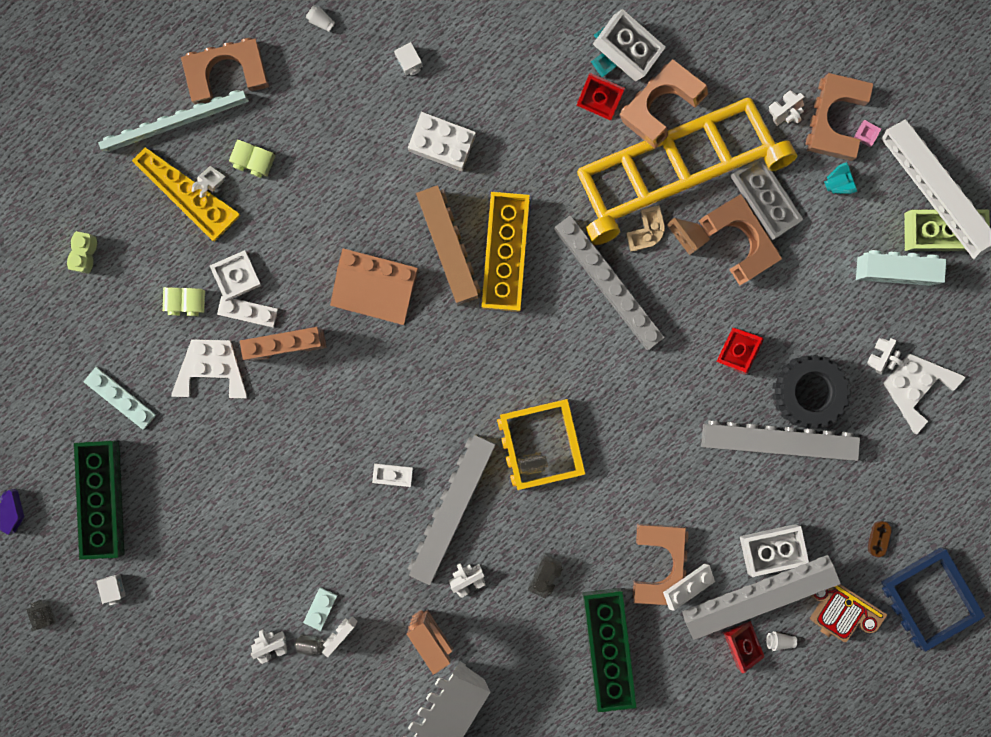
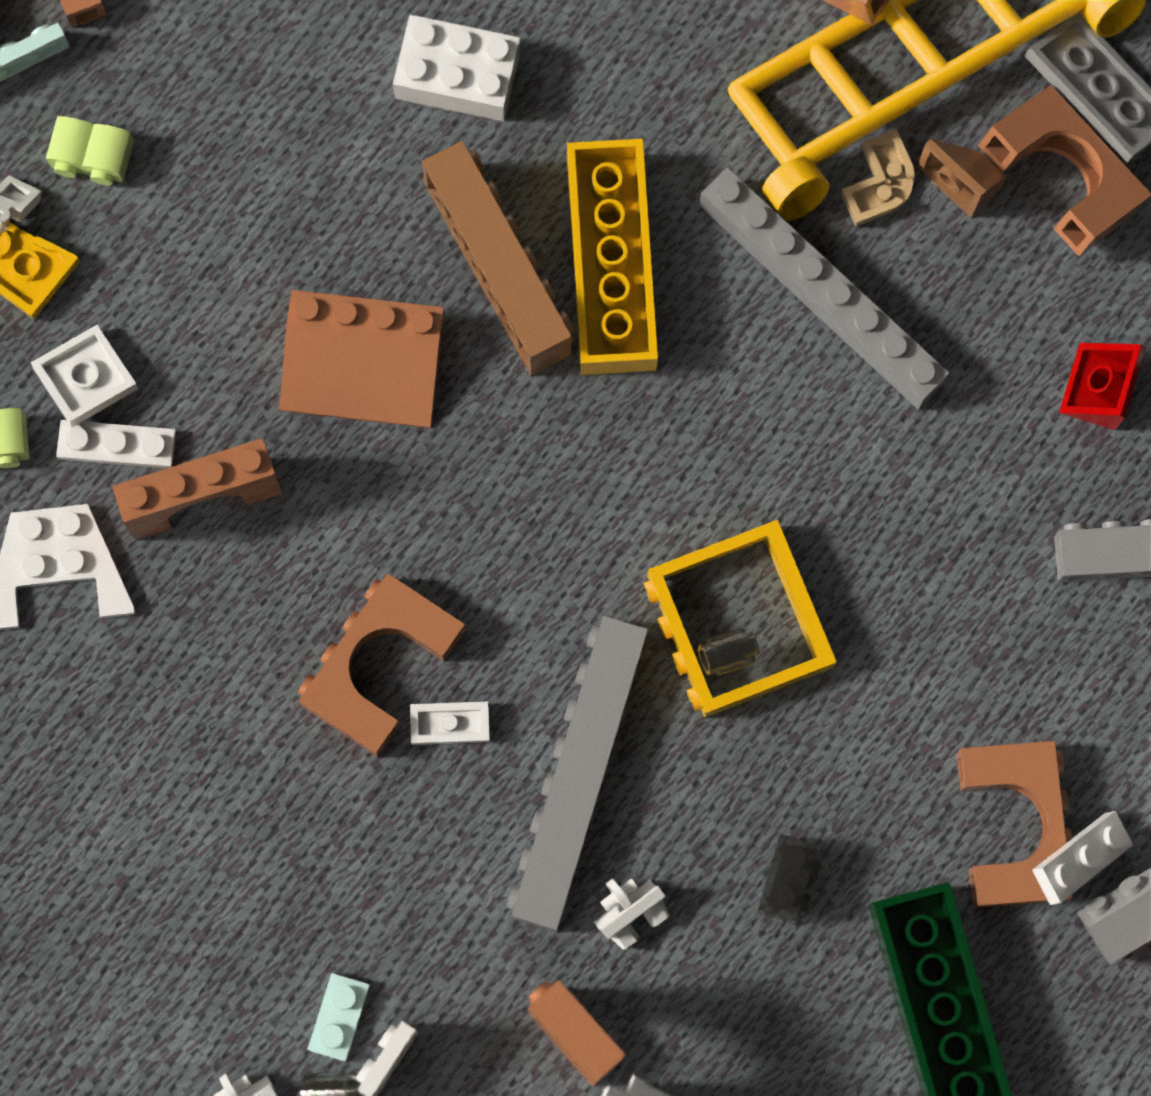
camera: 10 degrees left, 10 degrees down
(338, 453) = (389, 610): none -> nougat arch

